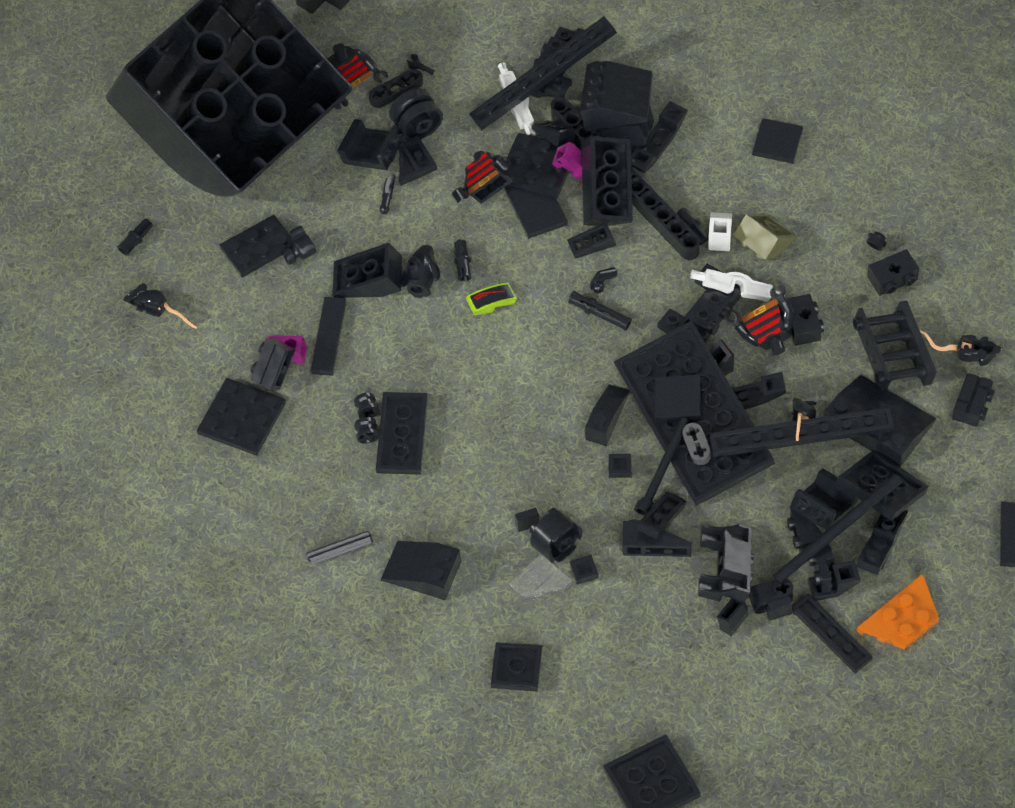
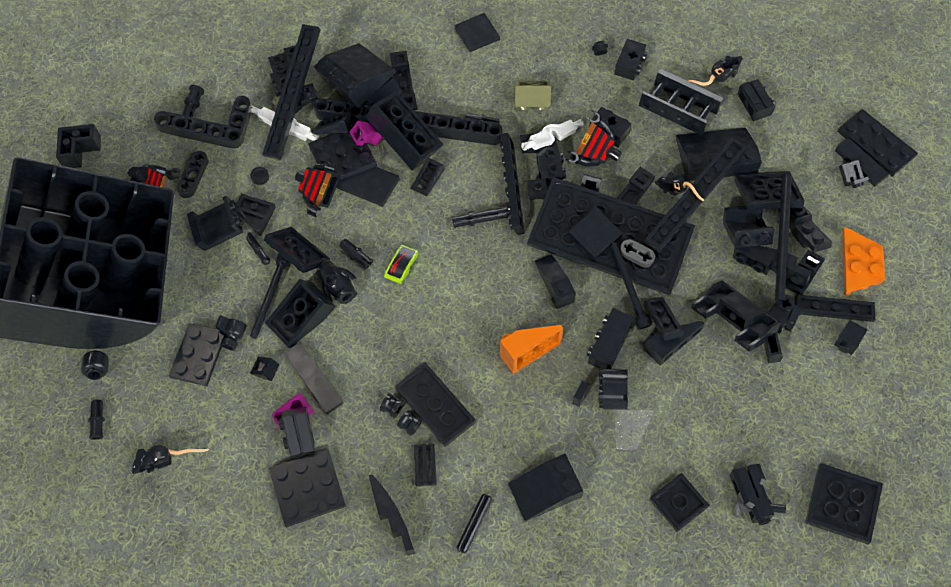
camera: 45 degrees left, 5 degrees up
(172, 191) = (94, 365): none -> black head
(282, 483) = (387, 509): none -> black slope
(298, 298) = (265, 368): none -> black slope
(365, 465) = (424, 448): none -> black tile
(395, 221) = (281, 264): none -> black piece
(414, 217) = (296, 249): none -> black plate
(415, 64) = (189, 149): black hand -> none
(416, 114) = (228, 179): black wheel -> none
(444, 57) = (209, 127): none -> black beam
(450, 131) = (259, 175): none -> black tile
(454, 22) = (192, 101): none -> black pin
(522, 446) = (528, 345): none -> orange slope
(581, 710) = (752, 495): none -> black piece
(584, 569) = (650, 396): black plate -> none
(597, 282) = (458, 193): black arm -> none
(599, 498) = (610, 339): none -> black brick
(620, 466) = (599, 307): black plate -> none
(657, 303) = (512, 190): none -> black plate
(720, 231) = (504, 109): white slope -> none
(812, 664) = (850, 337): none -> black brick
(986, 536) = (852, 174): none -> bracket

